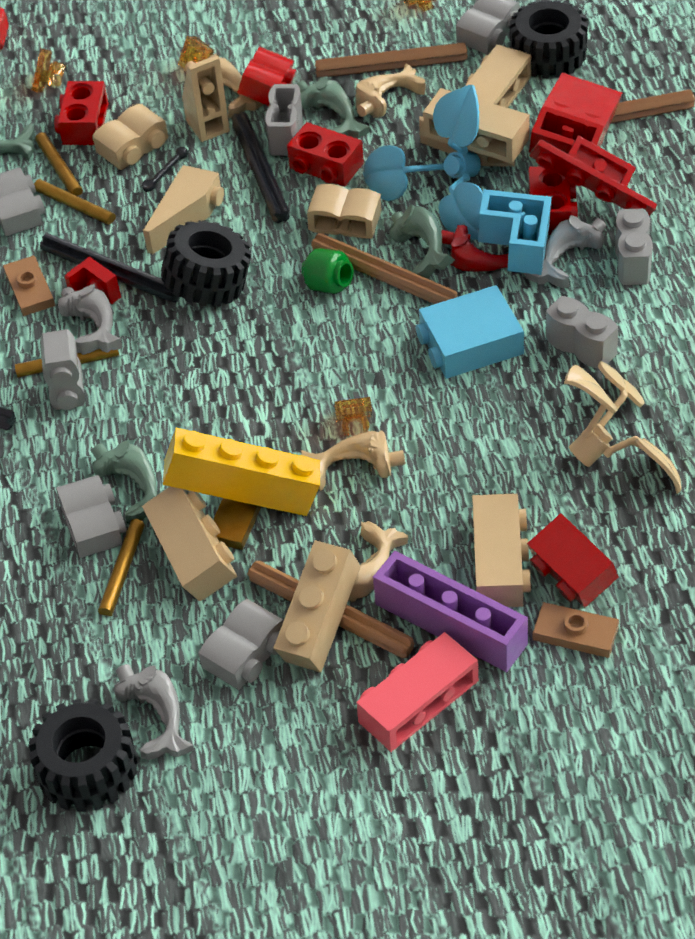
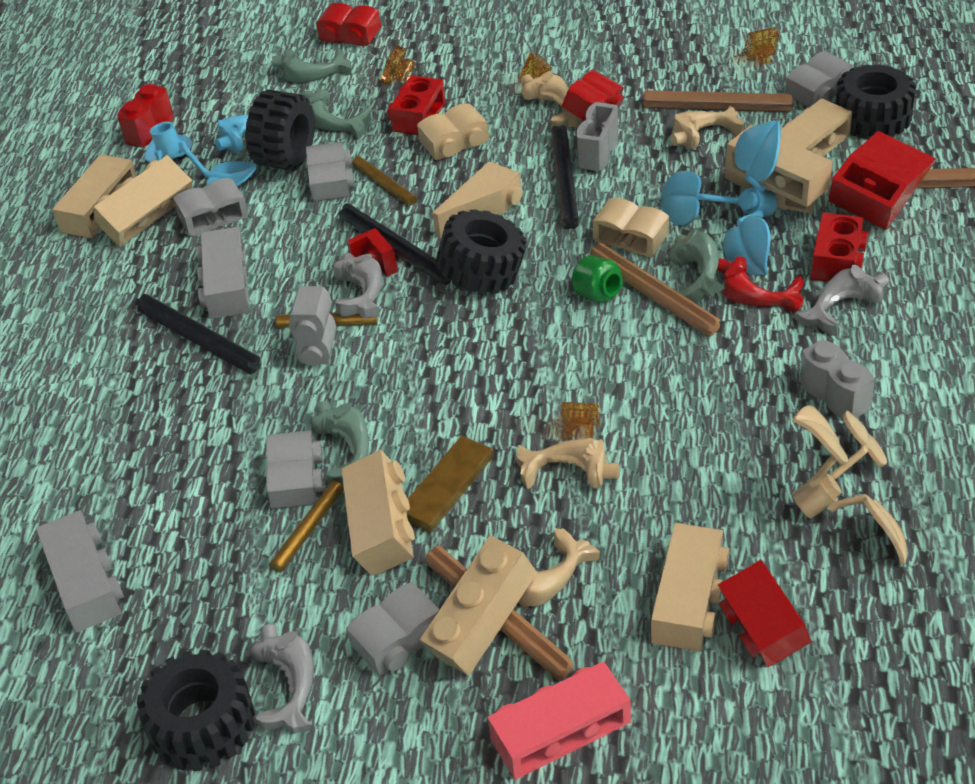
camera: 15 degrees right, 5 degrees down
(28, 285) = (316, 247): medium nougat plate -> none
(58, 164) = (382, 146): pearl gold bar -> none
(149, 185) = (456, 177): black hinge -> none
(205, 99) = (527, 105): tan slope -> none
(241, 472) = (446, 453): yellow brick -> none
(325, 154) = (628, 173): red brick -> none
(331, 95) = (649, 122): sand green animal -> none
(450, 607) = (618, 637): medium lavender brick -> none
(470, 332) = (721, 360): medium azure brick -> none
(517, 222) = (796, 262): medium azure brick -> none
(576, 629) = (751, 689): medium nougat plate -> none
(595, 170) = (890, 226): red bracket -> none
(633, 246) = (912, 305): light grey brick -> none

